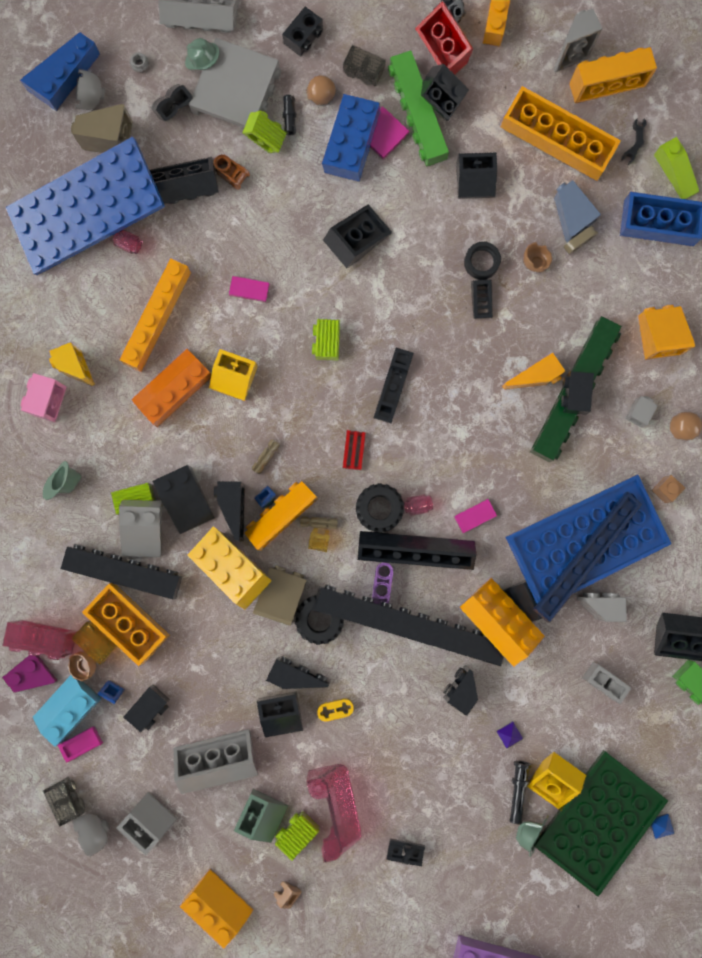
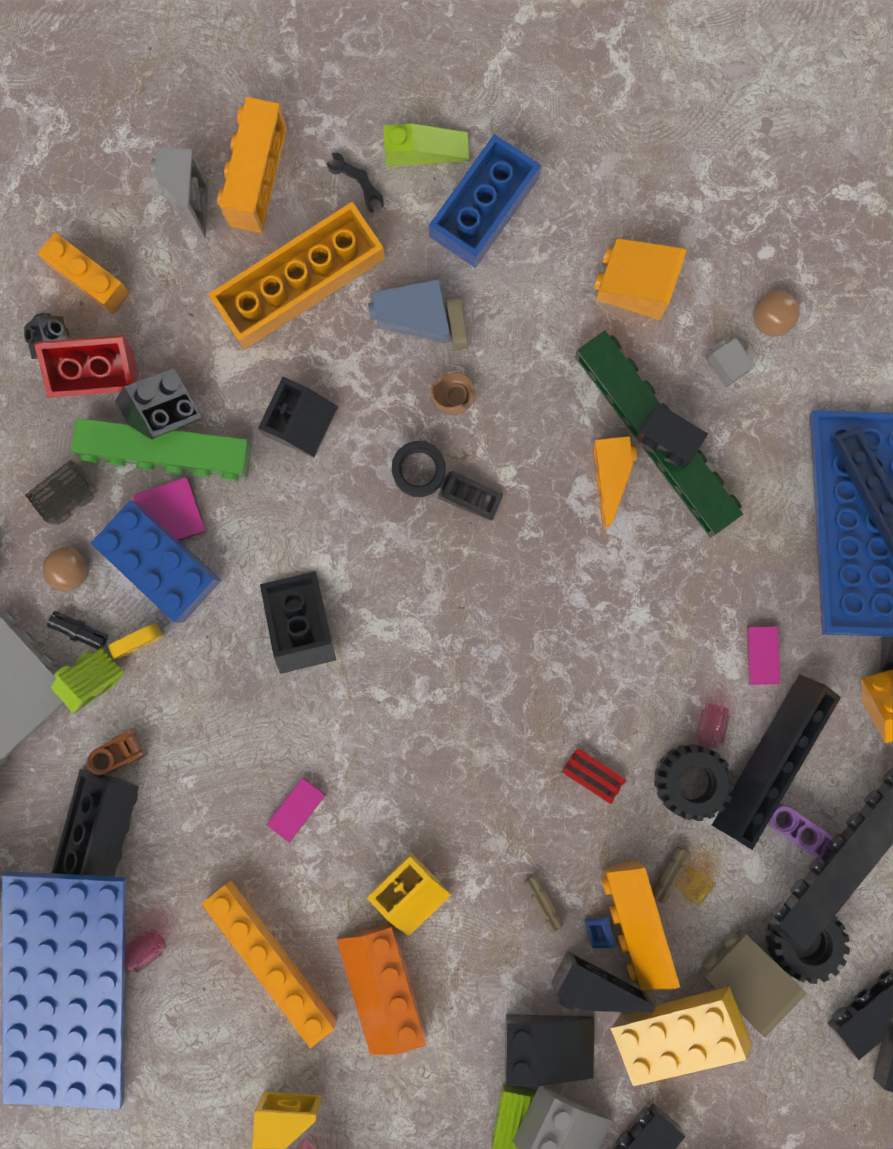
camera: 60 degrees left, 0 degrees up
(300, 150) = (135, 641): none -> yellow beam
(327, 339) = (423, 737): lime brick -> none
(393, 385) = (533, 678): black slope -> none
(668, 489) = (852, 380): medium nougat brick -> none

